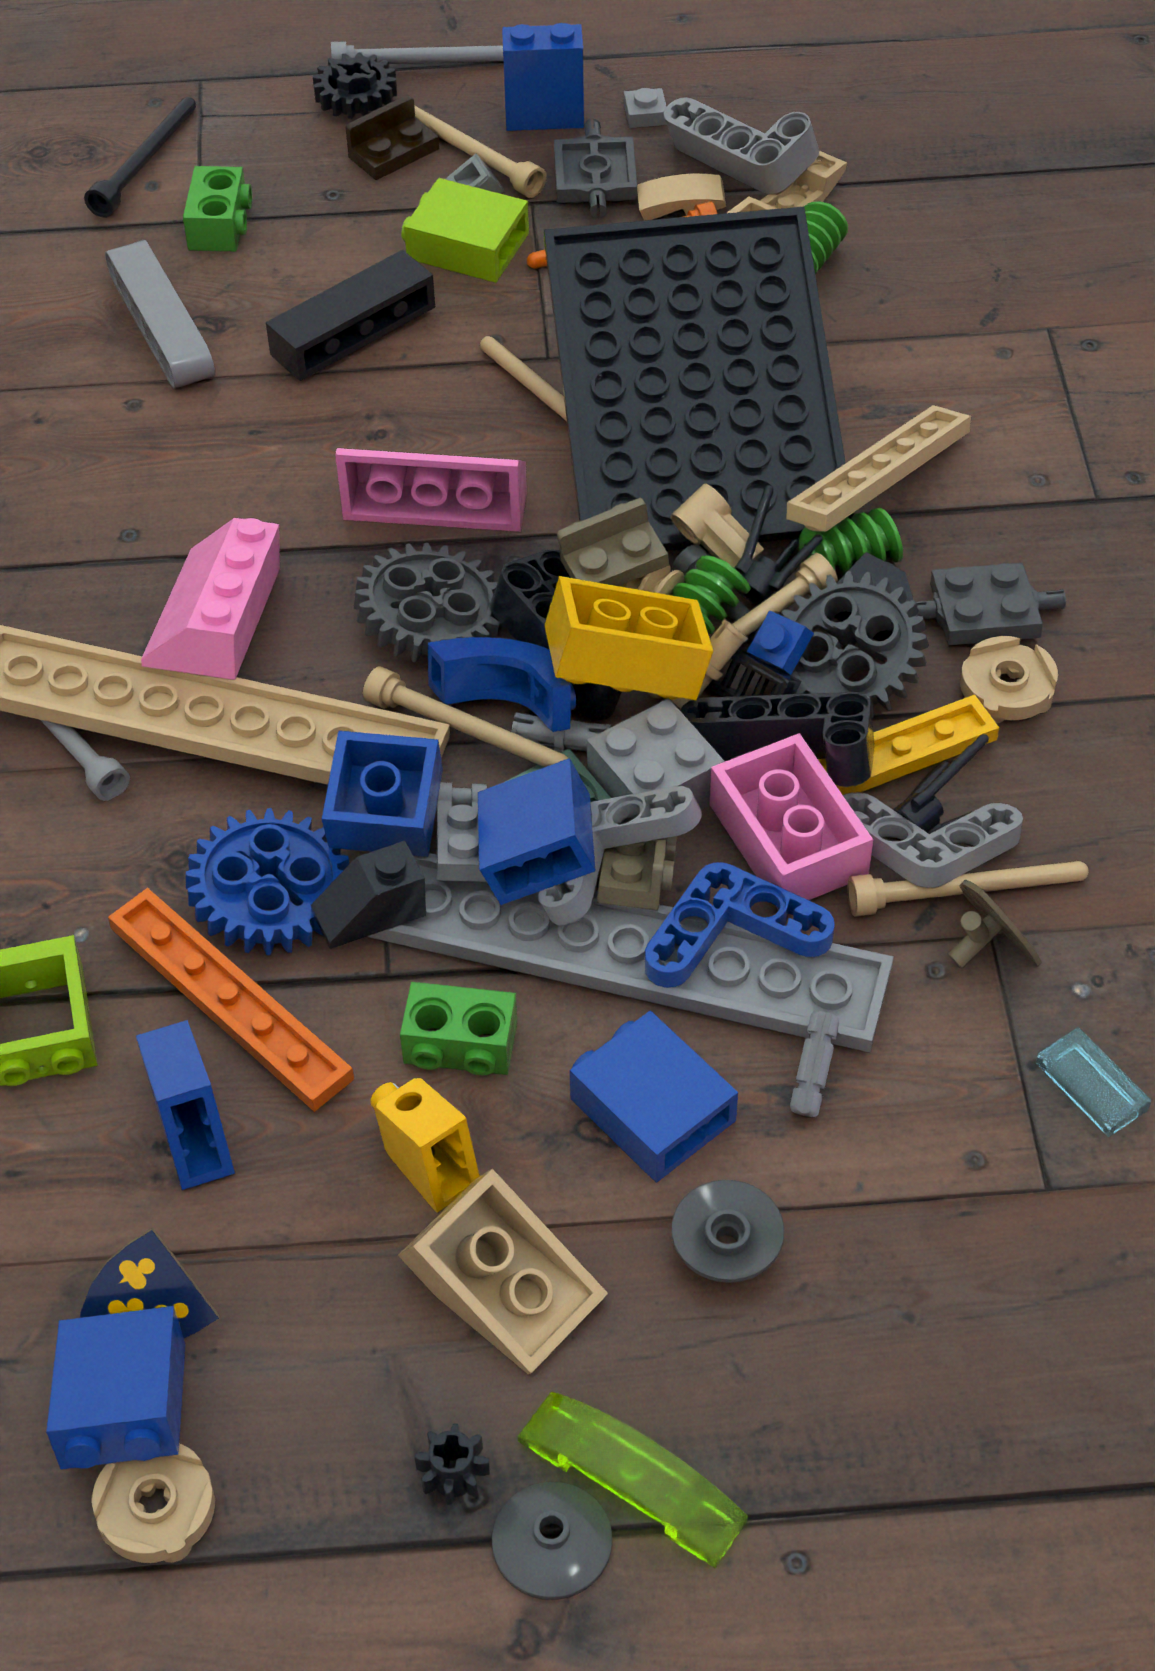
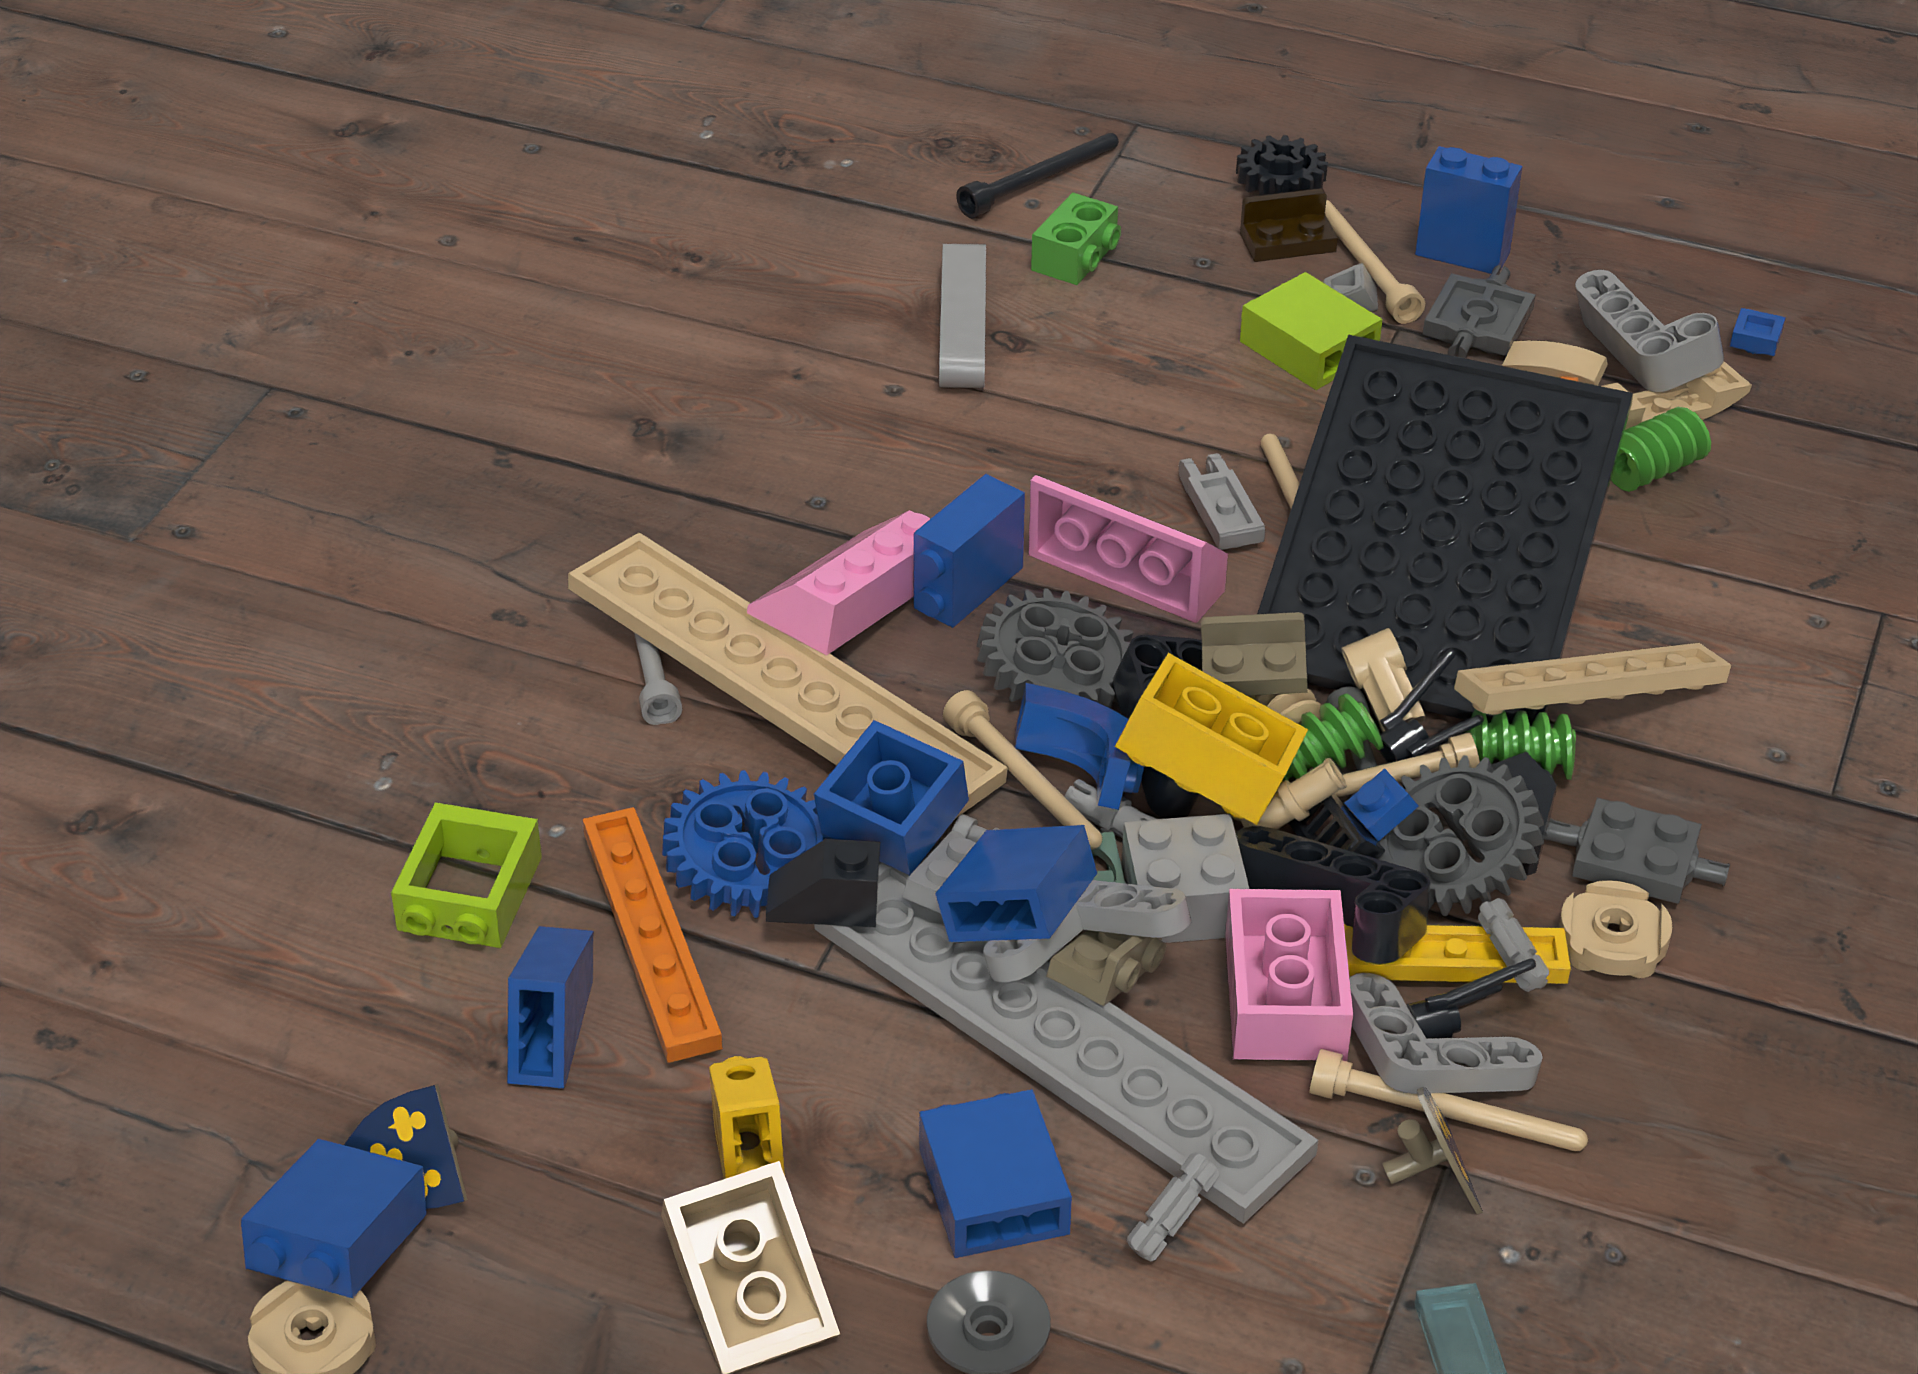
camera: 25 degrees right, 10 degrees down
(304, 536) = (968, 550): none -> blue brick
(350, 315) = (1144, 370): black brick -> none
(423, 54) = (1355, 156): light grey piece -> none
(460, 1017) = (845, 1040): bright green brick -> none
(482, 413) = (1222, 503): none -> light grey hinge
(645, 107) = (1566, 270): light grey plate -> none
(734, 907) = (1174, 1027): blue beam -> none
(825, 112) = (1757, 332): none -> blue plate
(946, 722) = (1512, 942): none -> light grey axle

